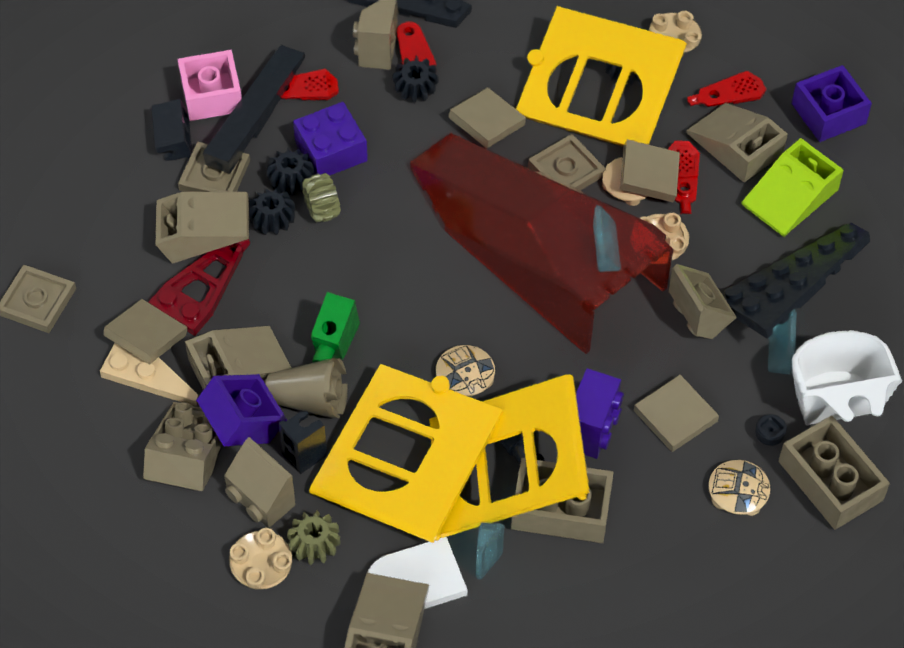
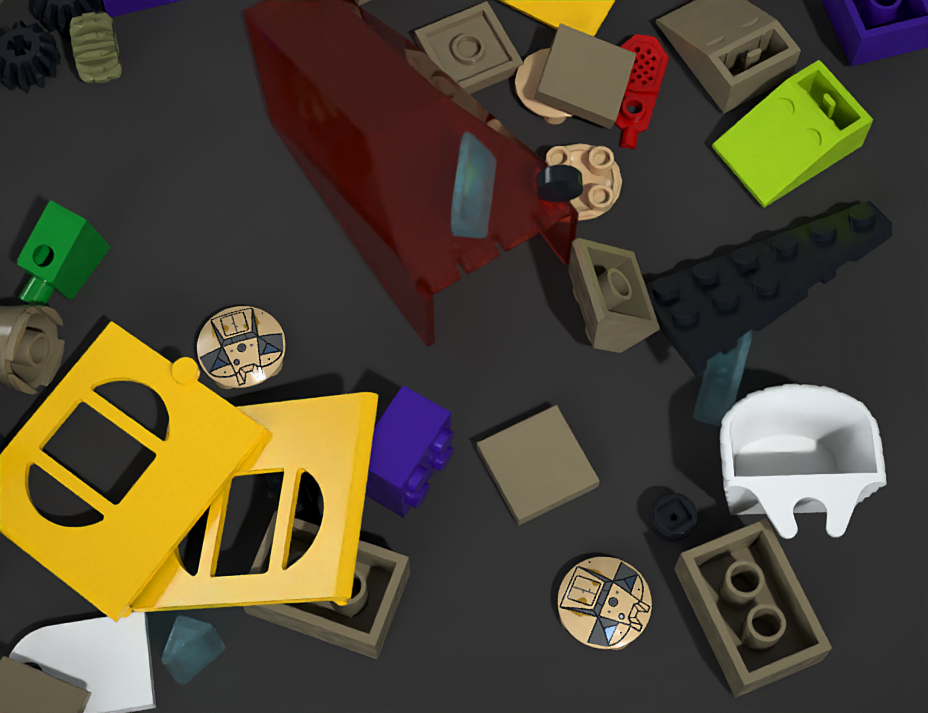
camera: 10 degrees right, 10 degrees up
(660, 229) = (559, 183): none -> black tile

